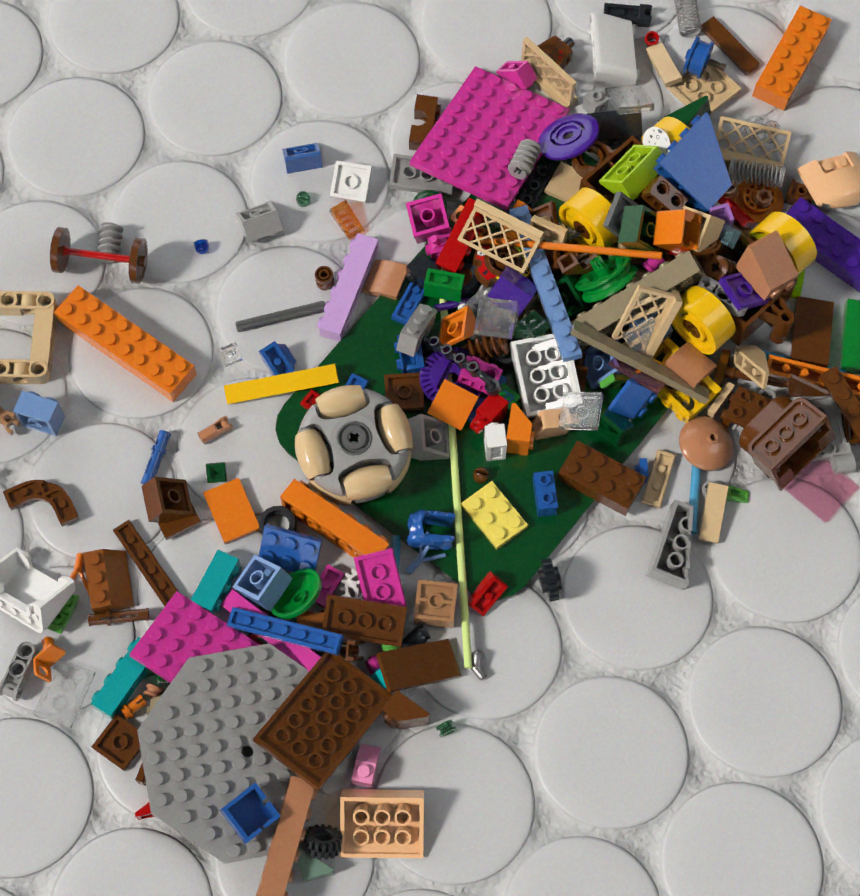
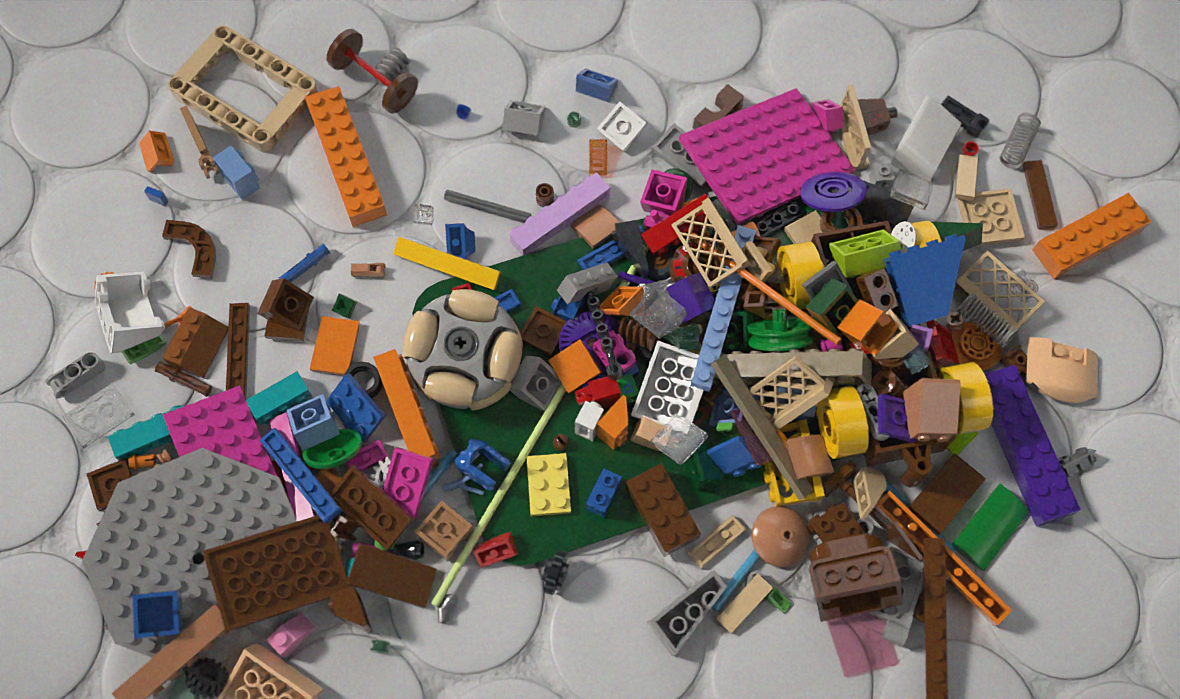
camera: 30 degrees right, 0 degrees up
(46, 658) = (101, 378): orange bracket -> none
(443, 285) = (636, 257): green panel -> none
(524, 158) = (780, 188): light grey piece -> none
(640, 335) = (774, 403): clear tile -> none
(642, 468) = (705, 524): blue plate -> none
(699, 57) = (1000, 188): blue wheel -> none
(720, 400) = (818, 505): tan tile -> none
(763, 192) = (982, 351): nougat bush -> none

